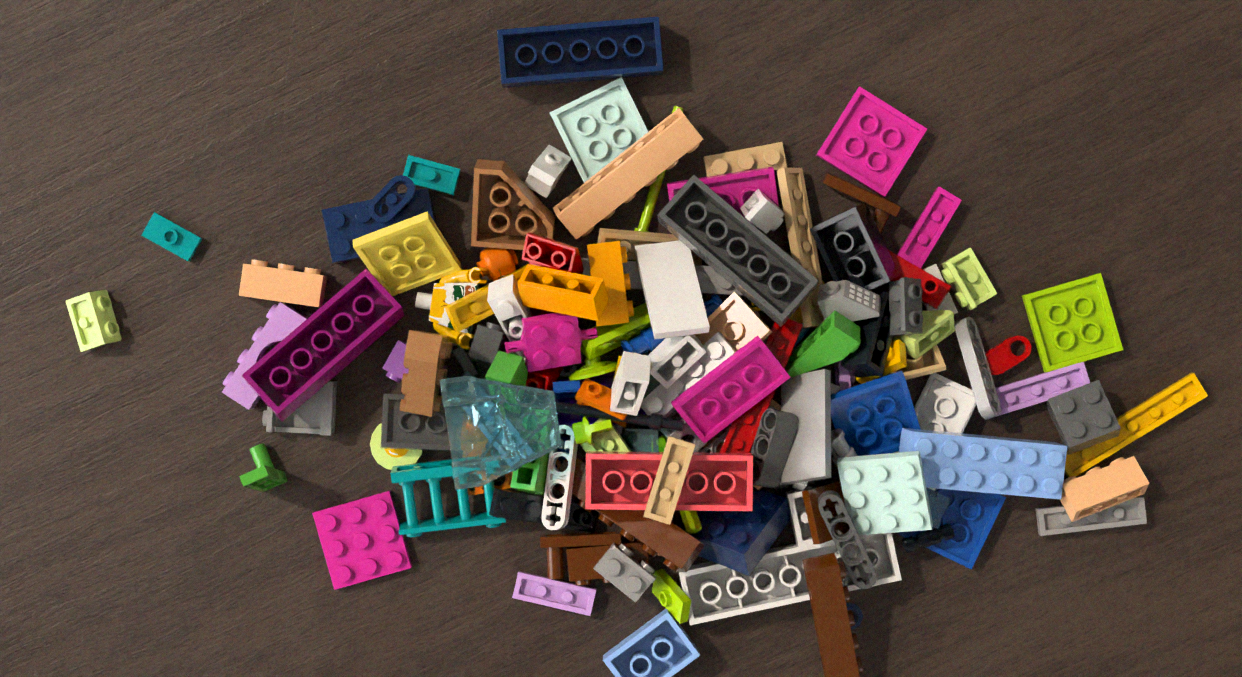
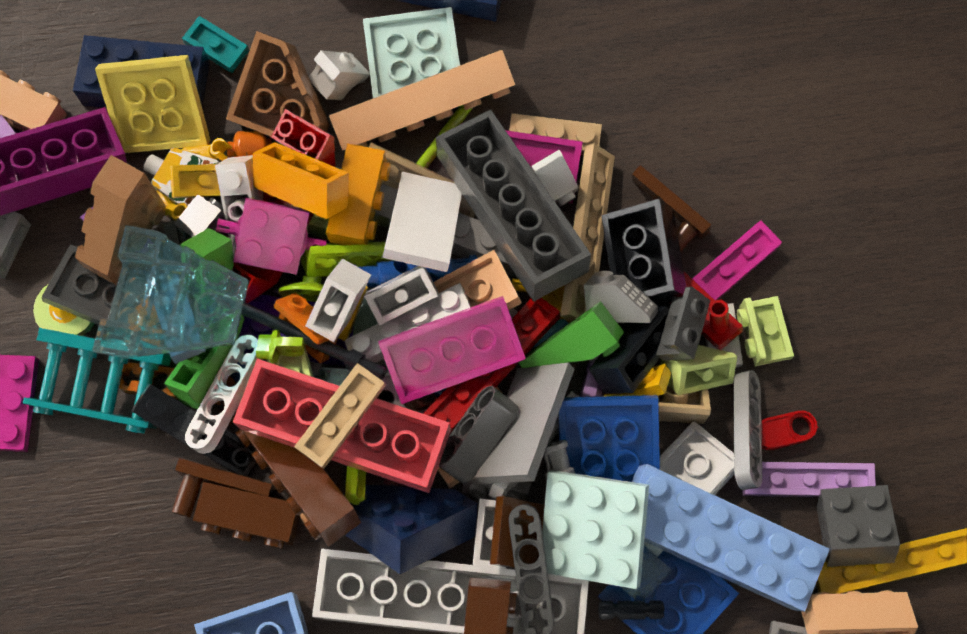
camera: 15 degrees right, 15 degrees down
(390, 196) = (159, 39): dark blue plate -> none
(554, 593) = (172, 533): lavender plate -> none
(566, 389) = (266, 298): blue tile -> none
(625, 571) = (259, 527): light grey bracket -> none
(671, 596) = (304, 577): lime plate -> none
(871, 142) = (699, 153): dark pink plate -> none
(1072, 322) = (873, 417): lime plate -> none

